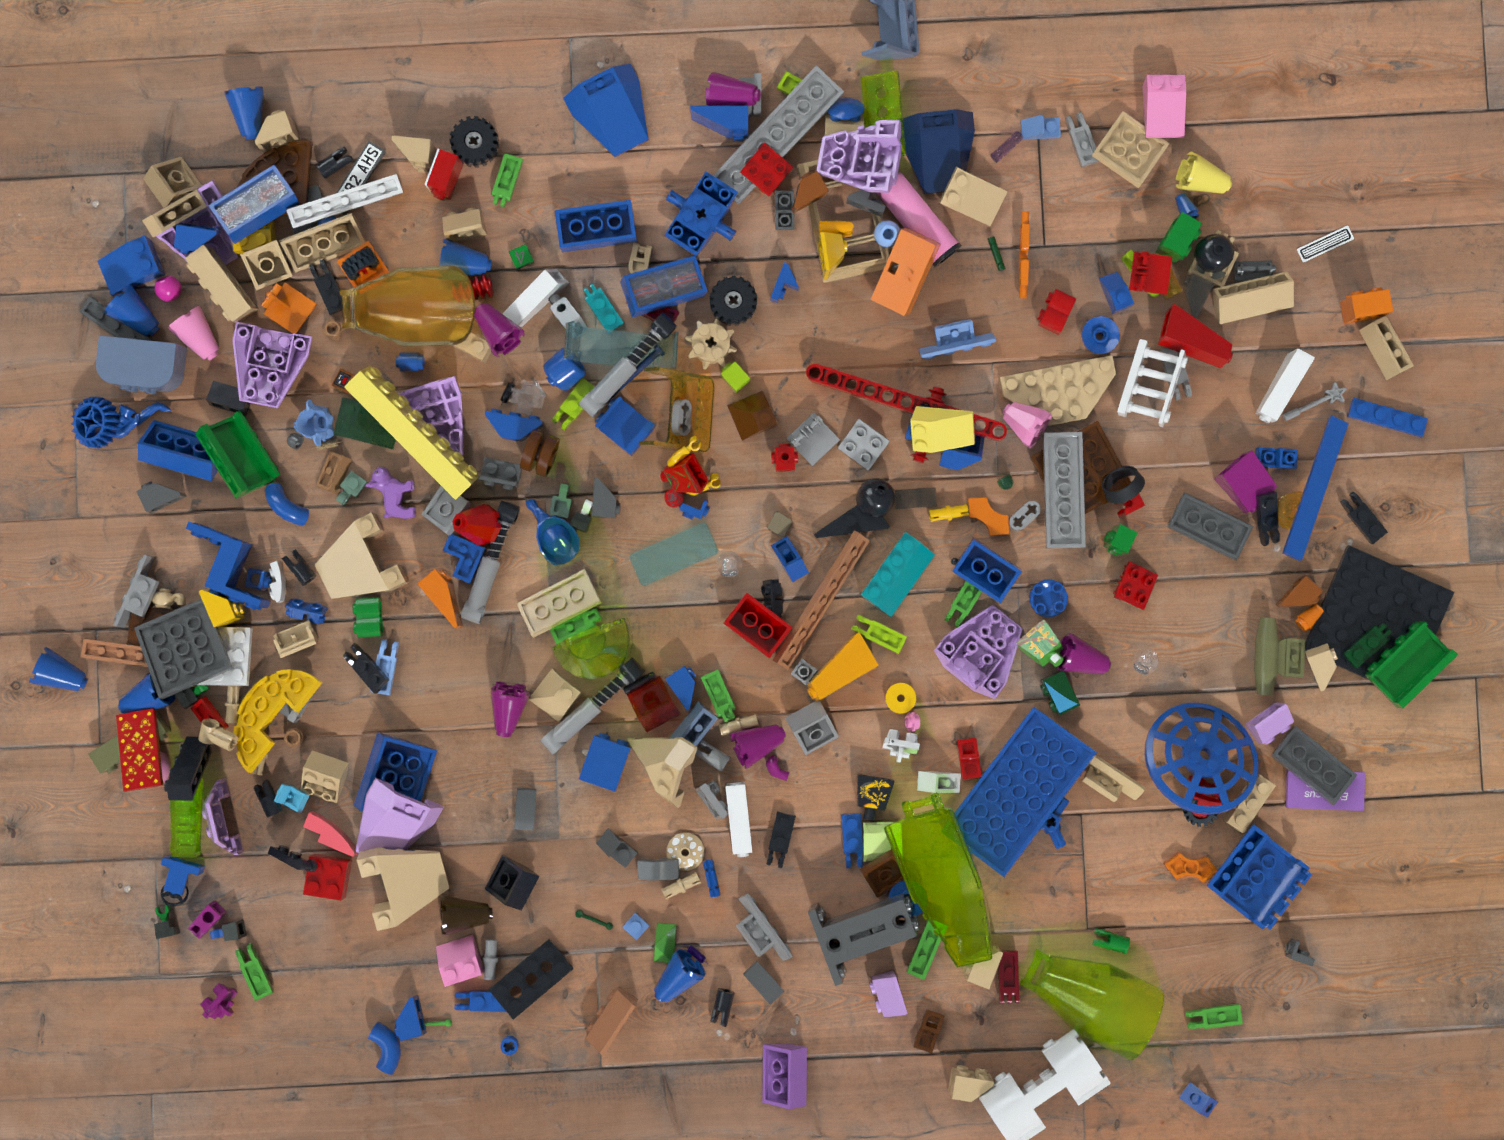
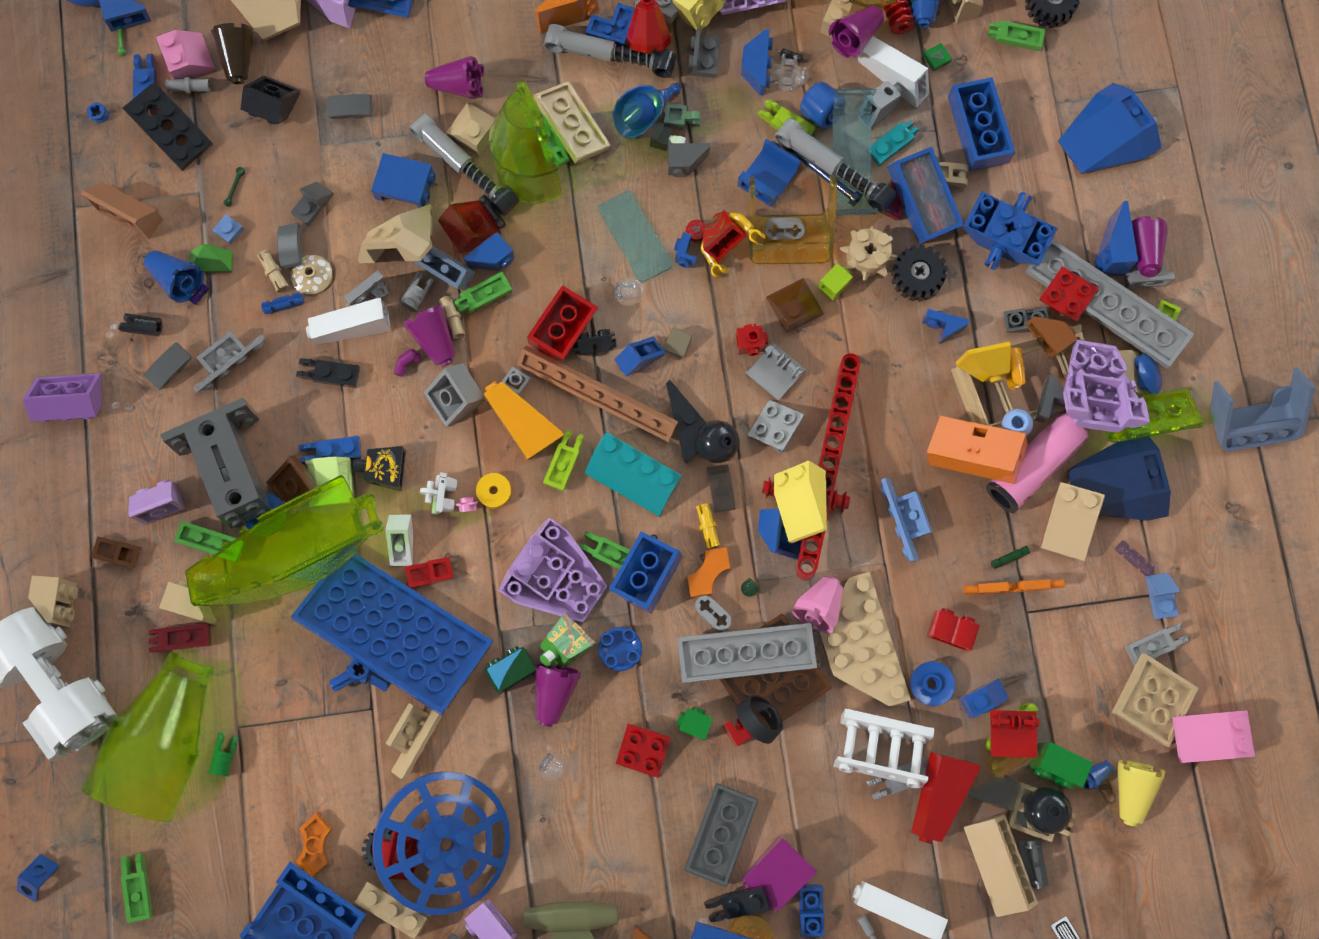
camera: 85 degrees right, 10 degrees down
(539, 453) = (730, 85): reddish brown wheel -> none

